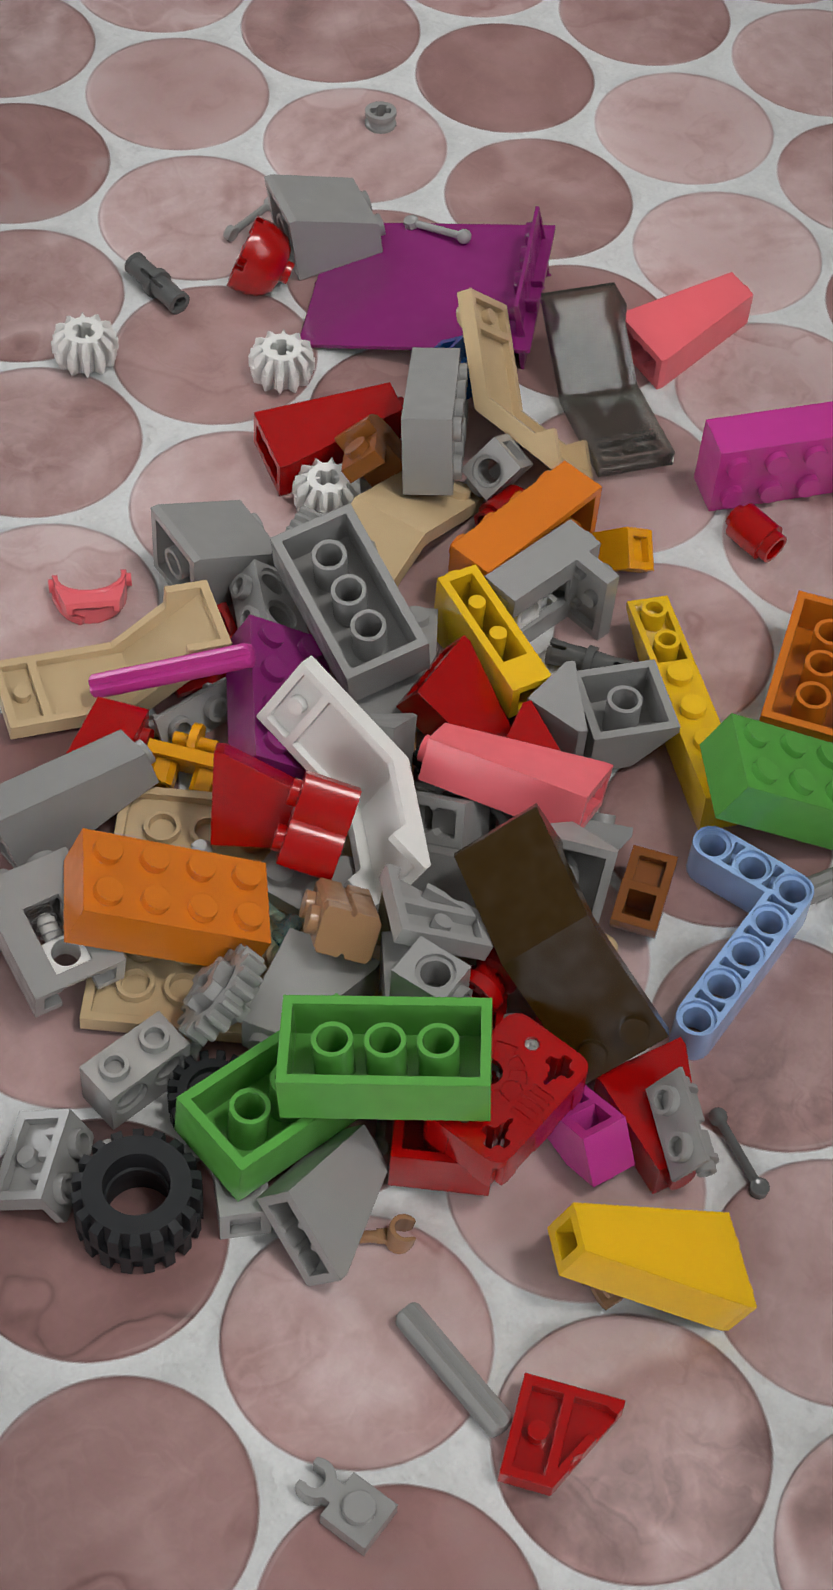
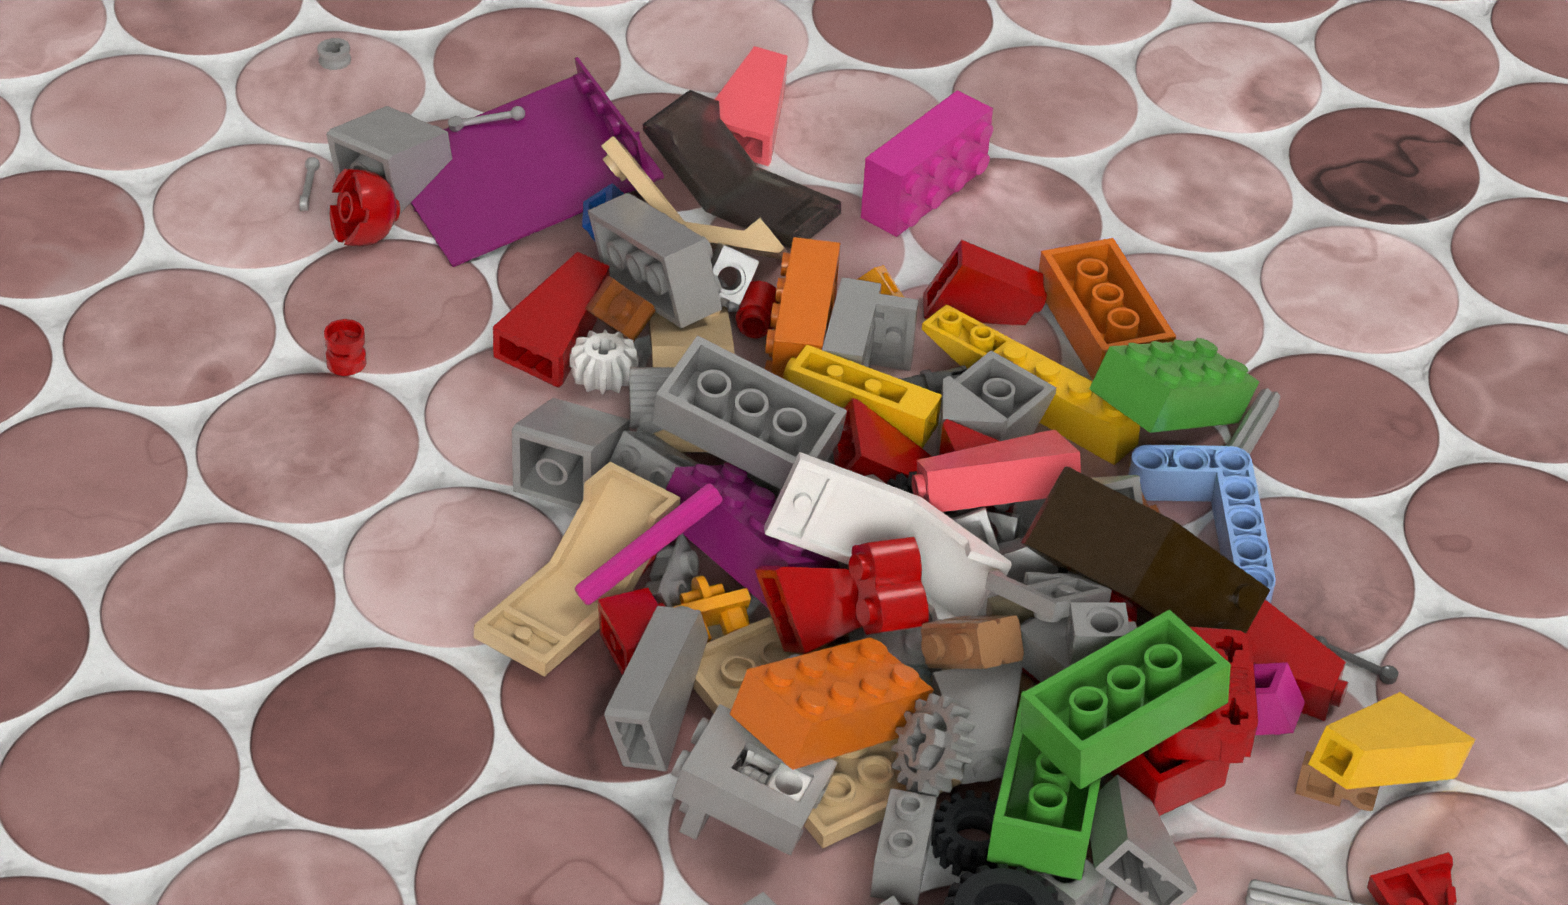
camera: 35 degrees left, 10 degrees down
(84, 345) = (281, 346): white gear -> none
(93, 604) = (496, 546): coral helmet -> none
(132, 370) = (345, 354): none -> red wheel
(169, 295) = (285, 270): dark grey pin -> none
(281, 361) = (462, 281): white gear -> none
(389, 1236) = (1191, 850): medium nougat hand -> none
(678, 1125) = (1324, 649): light grey hinge -> none
(728, 601) = (986, 287): none -> red slope
(755, 532) = (949, 228): red brick -> none

